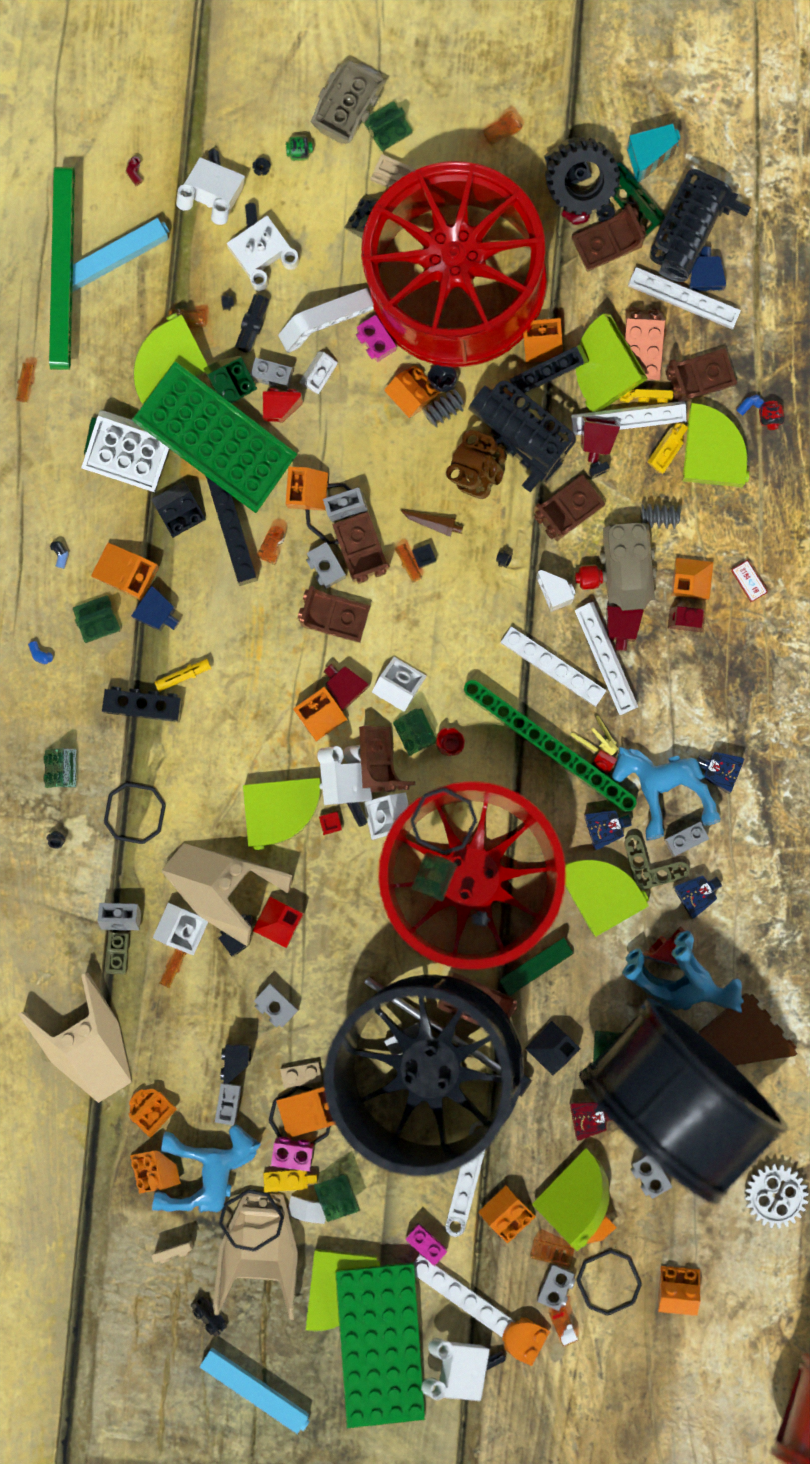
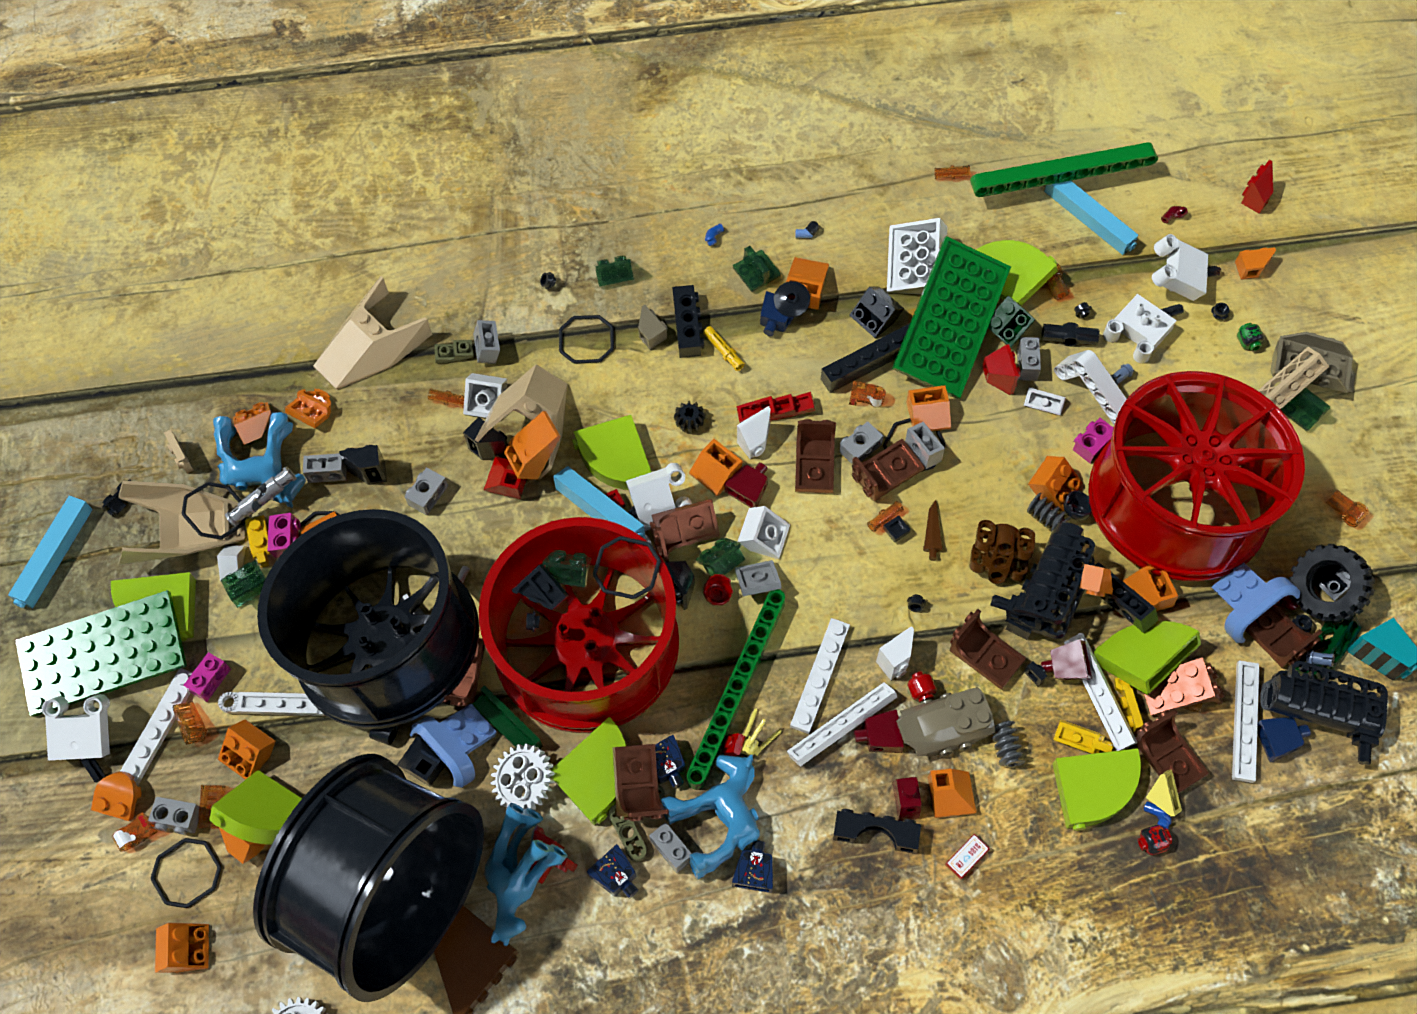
camera: 75 degrees right, 20 degrees down
(131, 73) = (1259, 188): none -> red slope
(141, 589) = (789, 307): none -> black dish
(142, 745) = (650, 328): none -> dark tan slope
(215, 112) = (1253, 262): none -> orange slope
(254, 1179) = (263, 494): none -> light grey piece
(259, 721) = (694, 421): none -> black gear
(264, 639) = (780, 407): none -> red slope
(267, 889) = (532, 447): none -> orange slope
(294, 666) = (753, 433): none -> white slope
(309, 288) = (1124, 372): none -> sand blue pin
(340, 836) = (594, 501): none -> medium azure brick
(371, 134) = (1294, 382): none -> tan fence
(434, 773) = (683, 581): none -> black slope
(446, 701) = (758, 578): none -> light grey tile
(451, 904) = (542, 588): none -> black wing
(469, 1271) = (190, 734): none -> clear orange slope
(539, 390) = (1096, 580): none -> orange slope
(543, 1016) = (455, 739): none -> medium blue piece
(576, 252) = (1249, 597): none -> medium blue piece
(579, 970) = (523, 777): none -> white gear
(629, 857) = (637, 783): none -> copper bracket
(647, 214) = (1319, 658): none -> sand blue pin
(720, 631) = (903, 834): none -> black arch
(737, 392) = (1165, 794): none -> light yellow slope

